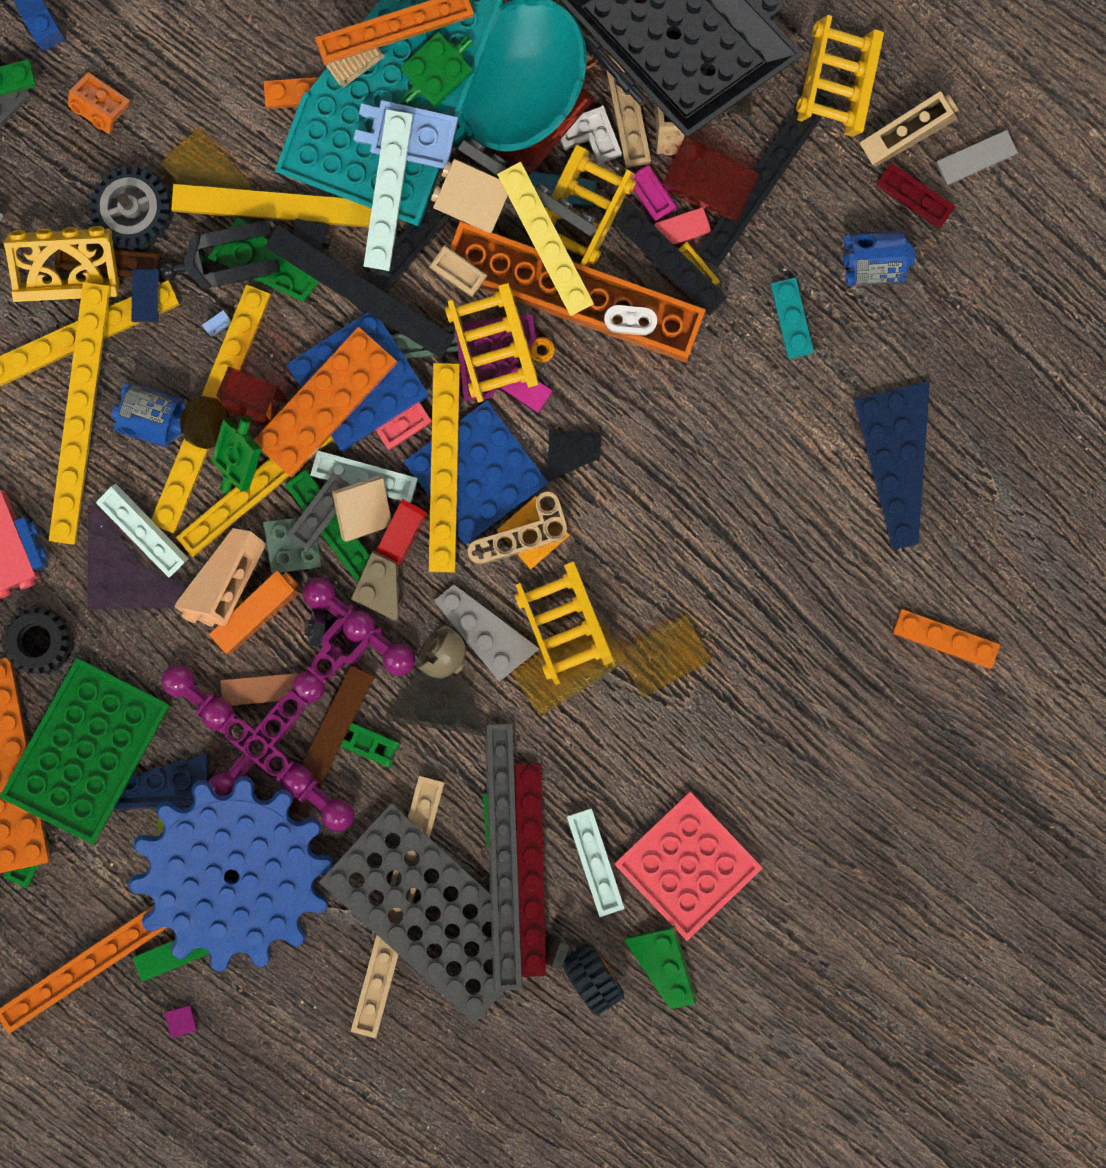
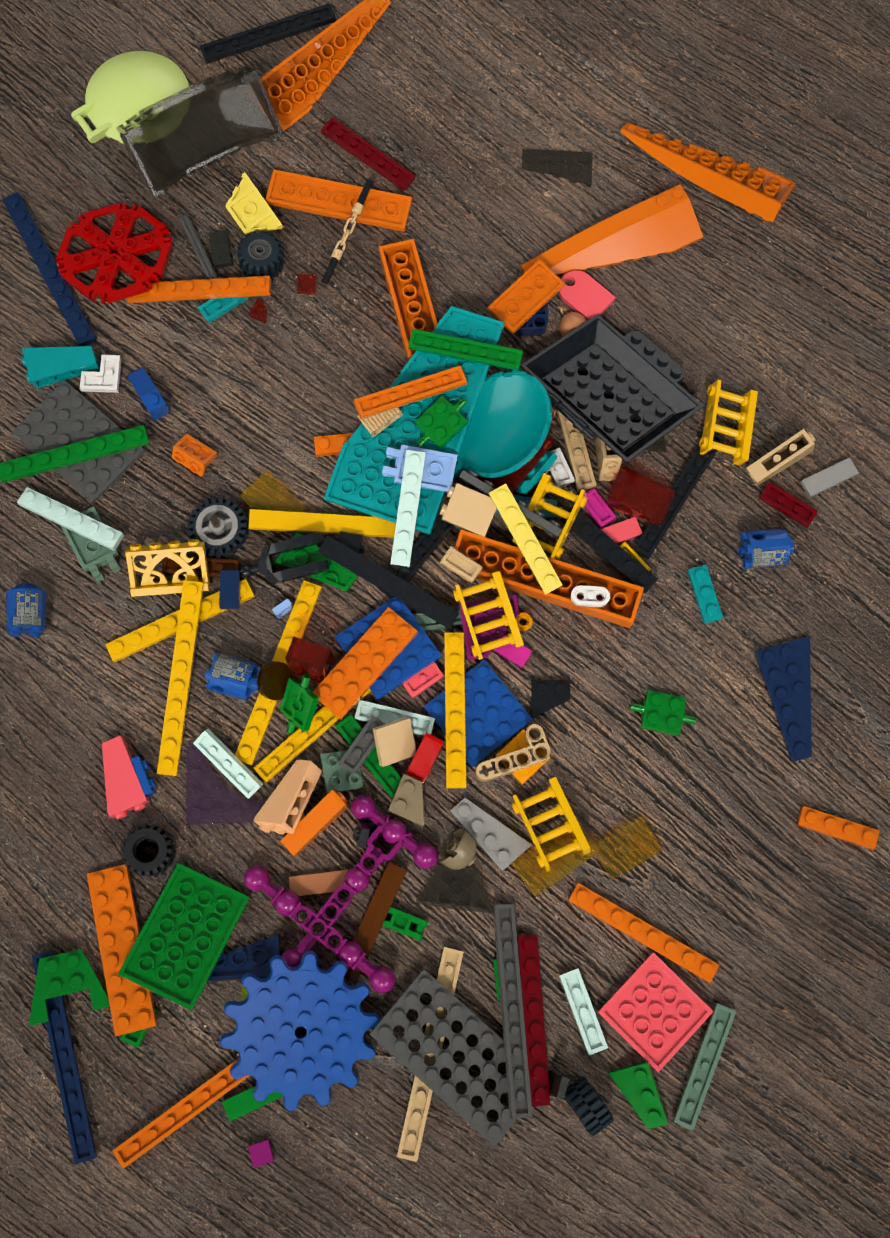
camera: 10 degrees left, 10 degrees down
(568, 142) = (537, 472): none -> teal hinge
(679, 766) = (643, 933): none -> orange plate
(724, 479) = (663, 713): none -> green plate
(747, 935) = (704, 1066): none -> sand green plate

